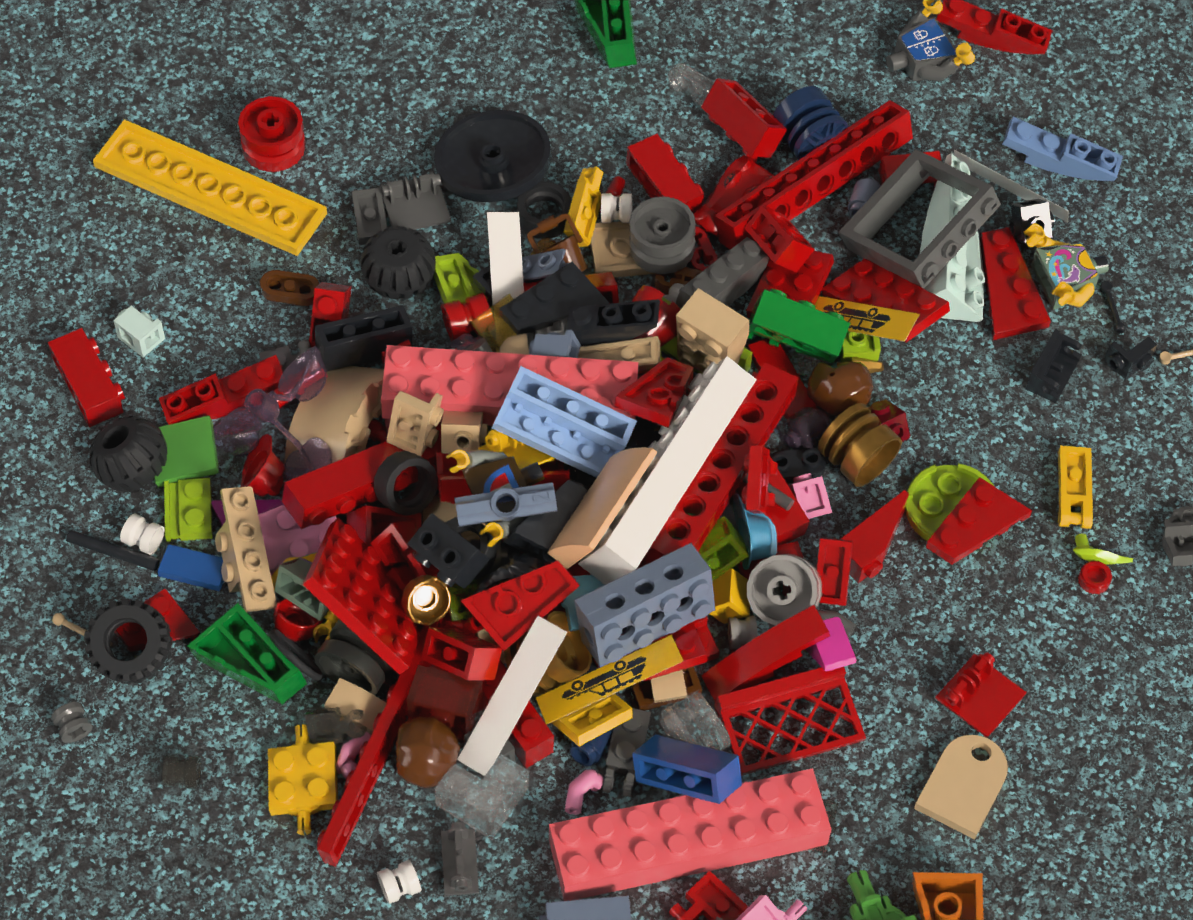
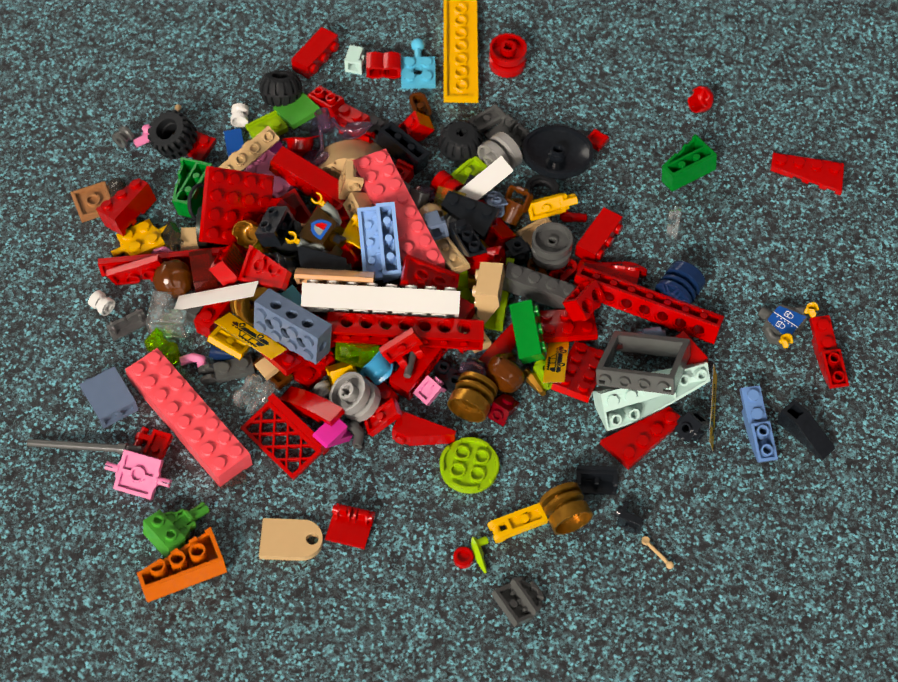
camera: 65 degrees right, 0 degrees up
(89, 689) = (144, 138): none -> bright pink arm
(112, 550) = (227, 109): black bar -> none
(174, 822) = (89, 199): none -> medium nougat tile
(175, 297) = (383, 65): none -> red brick
(208, 246) = (409, 65): none -> medium azure plate
(232, 770) = (126, 206): none -> red wedge
(379, 788) = (135, 271): none -> red wing
(421, 495) = (320, 185): black tyre -> none
(457, 222) = (500, 145): none -> light grey wheel
(489, 101) = (598, 139): none -> red tile
(528, 501) = (312, 238): sand blue piece -> none
(533, 827) = (168, 349): none -> clear neon green leg
(609, 207) = (560, 216): white wheel -> none
(633, 278) = (518, 250): none -> black brick
(687, 768) = (219, 395): blue brick -> none
(743, 118) = (662, 252): red brick -> none
(974, 520) = (462, 477): red wing -> none
(1064, 269) = (668, 459): torso -> none
(1085, 415) = (566, 508): none -> pearl gold wheel
(1092, 106) = (805, 429): none -> black slope
(1106, 288) = (677, 489): black hinge -> none

